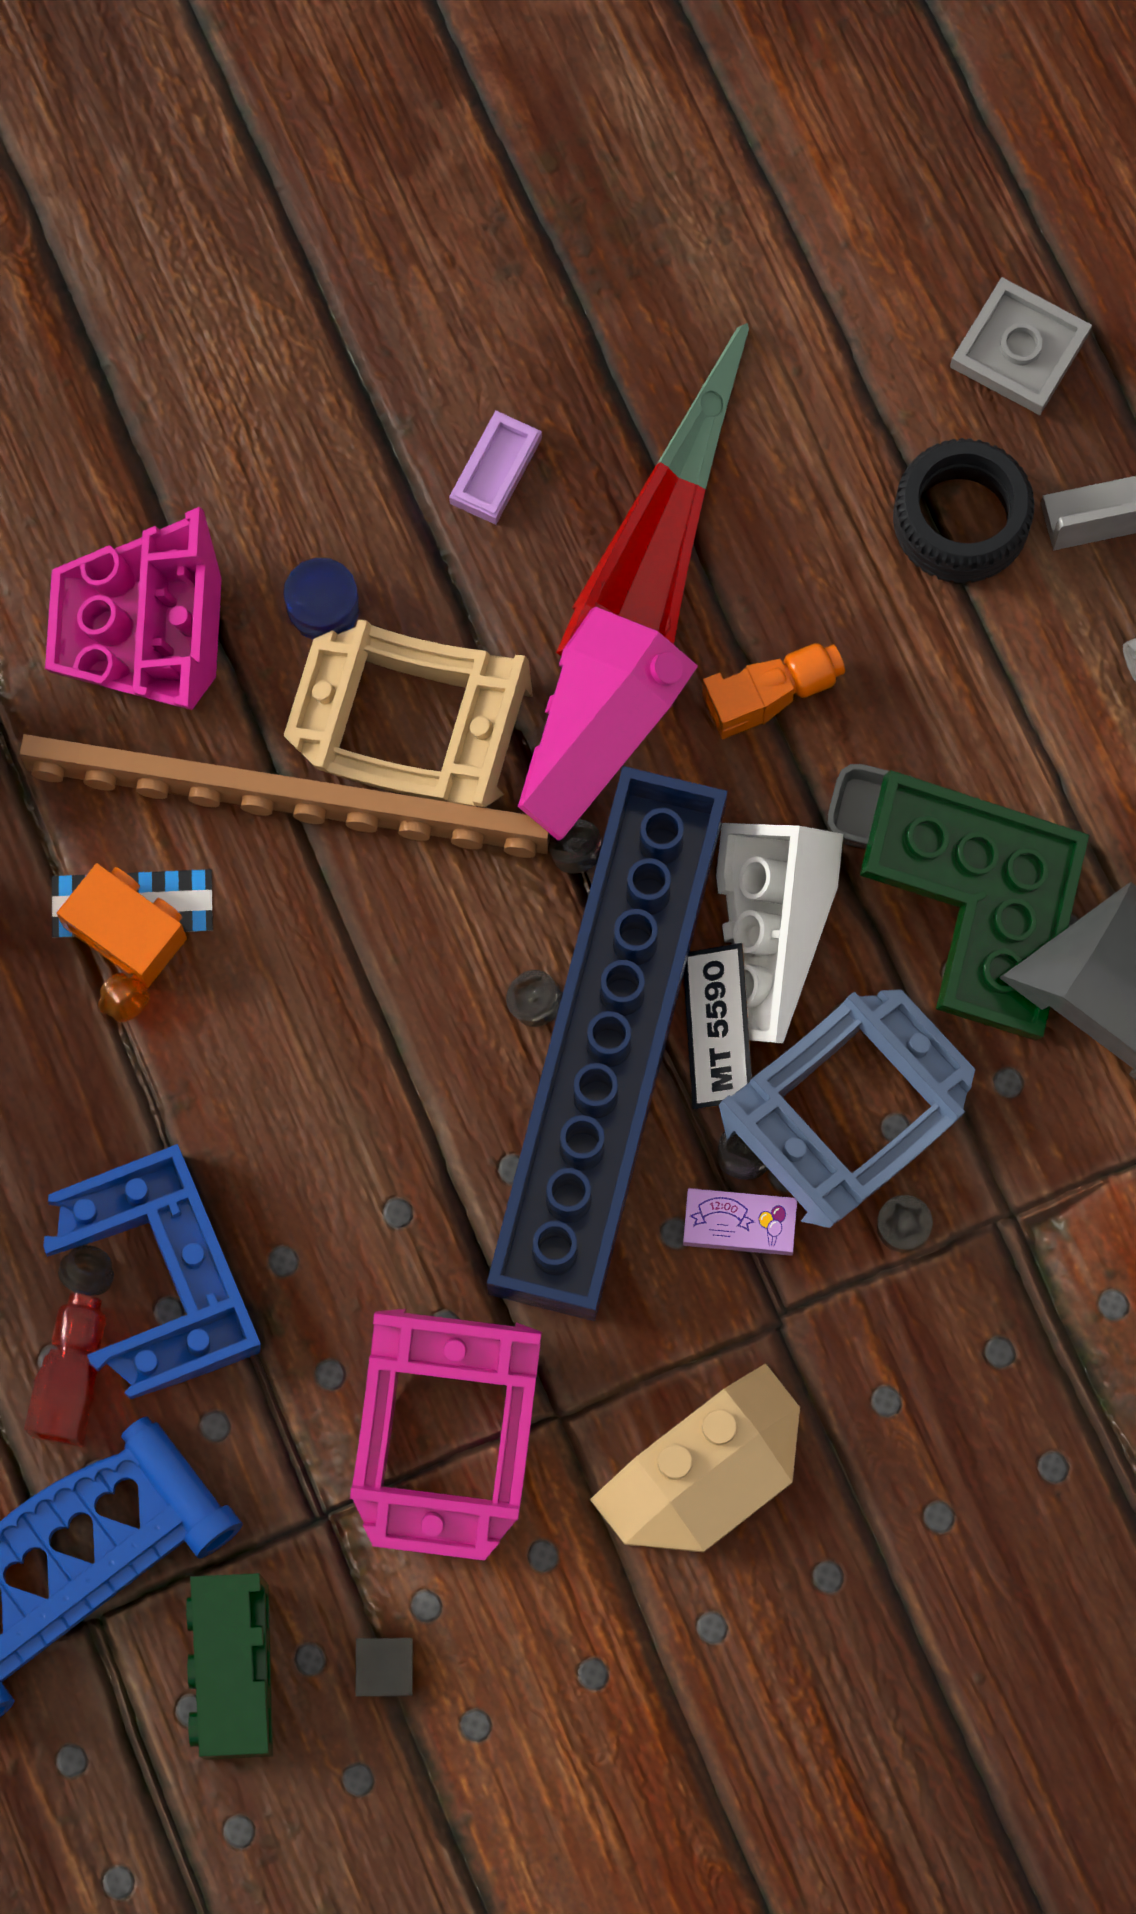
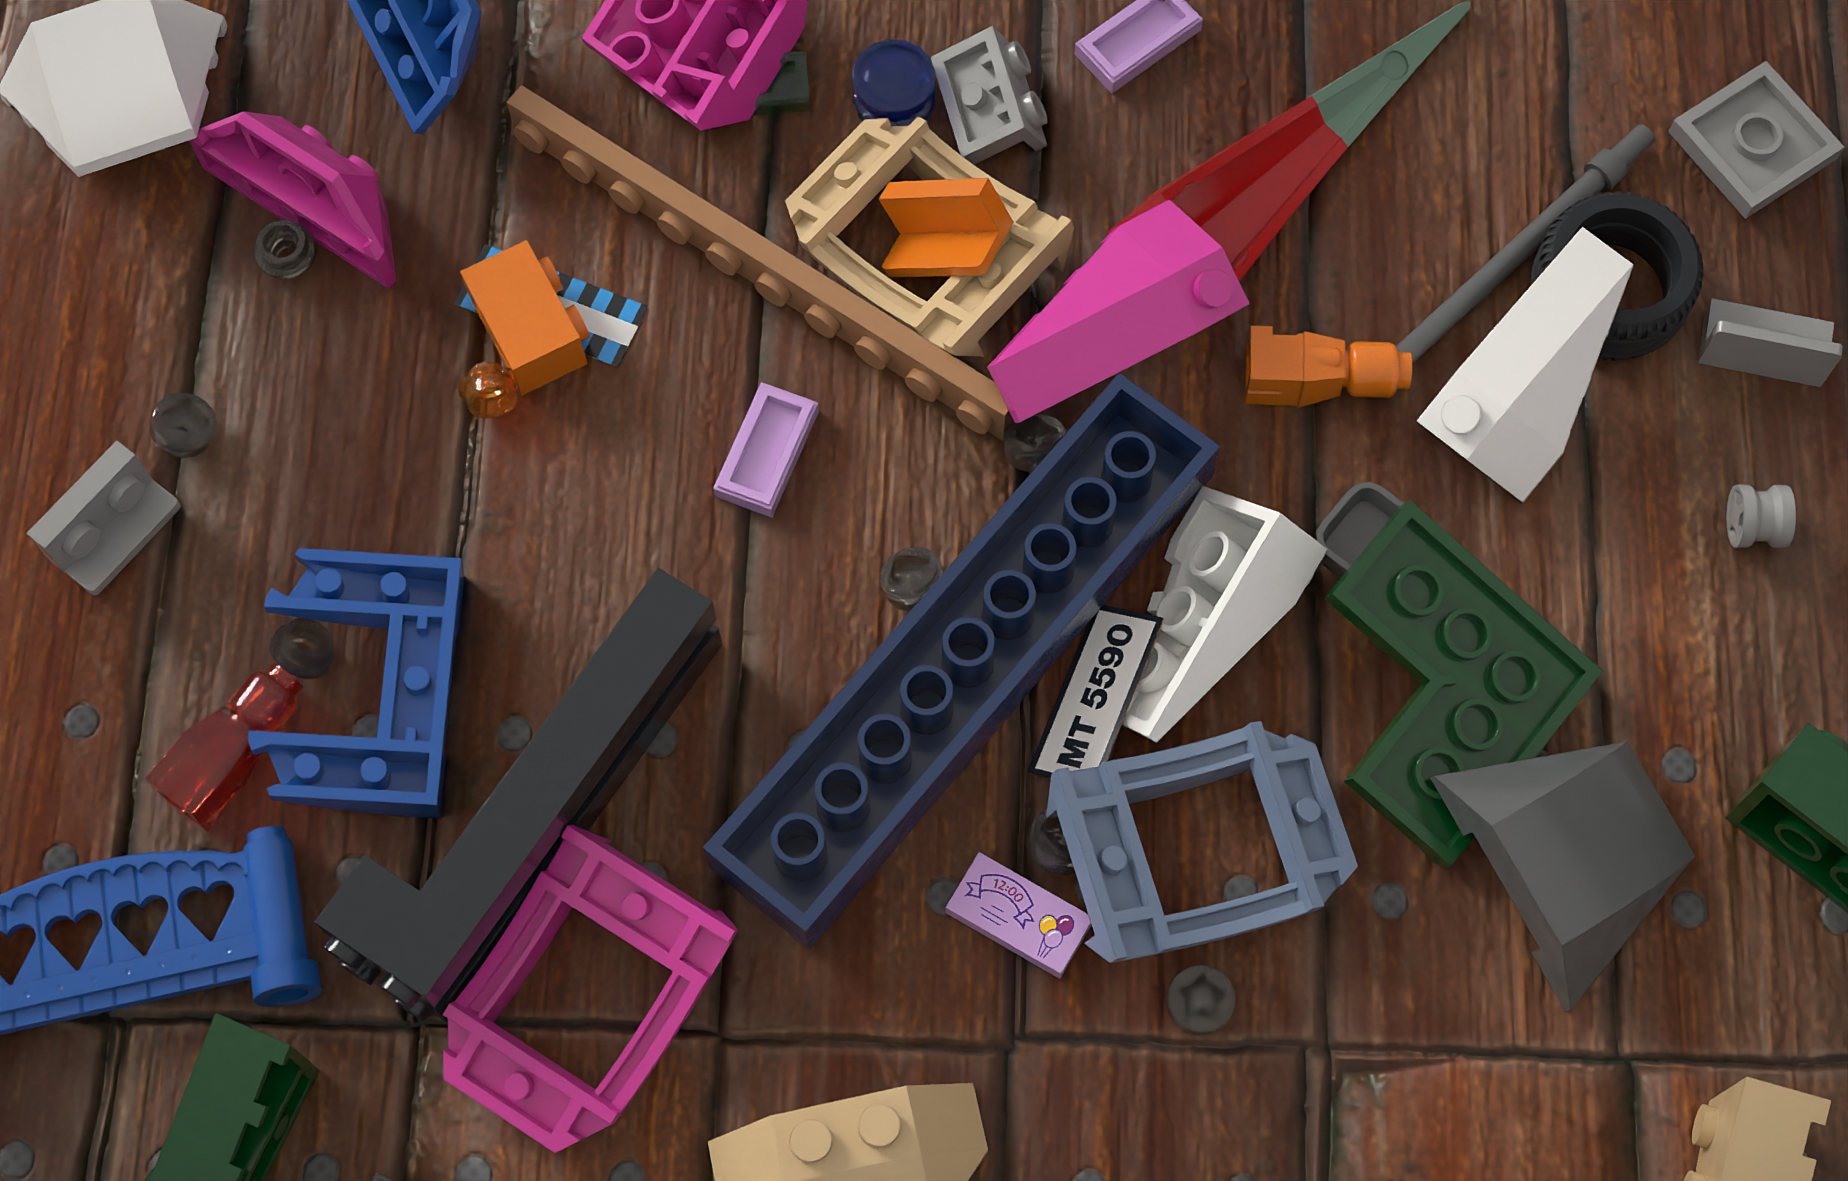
camera: 25 degrees right, 5 degrees down
(234, 634) = (789, 88): none -> tile
(317, 1448) = (438, 937): none -> black brick
(367, 945) = (766, 449): none -> lavender tile
(402, 573) = (989, 95): none -> light grey bracket
(425, 705) = (944, 227): none -> orange panel
(914, 427) = (1600, 174): none -> dark grey bar
(935, 629) = (1525, 381): none -> white wedge

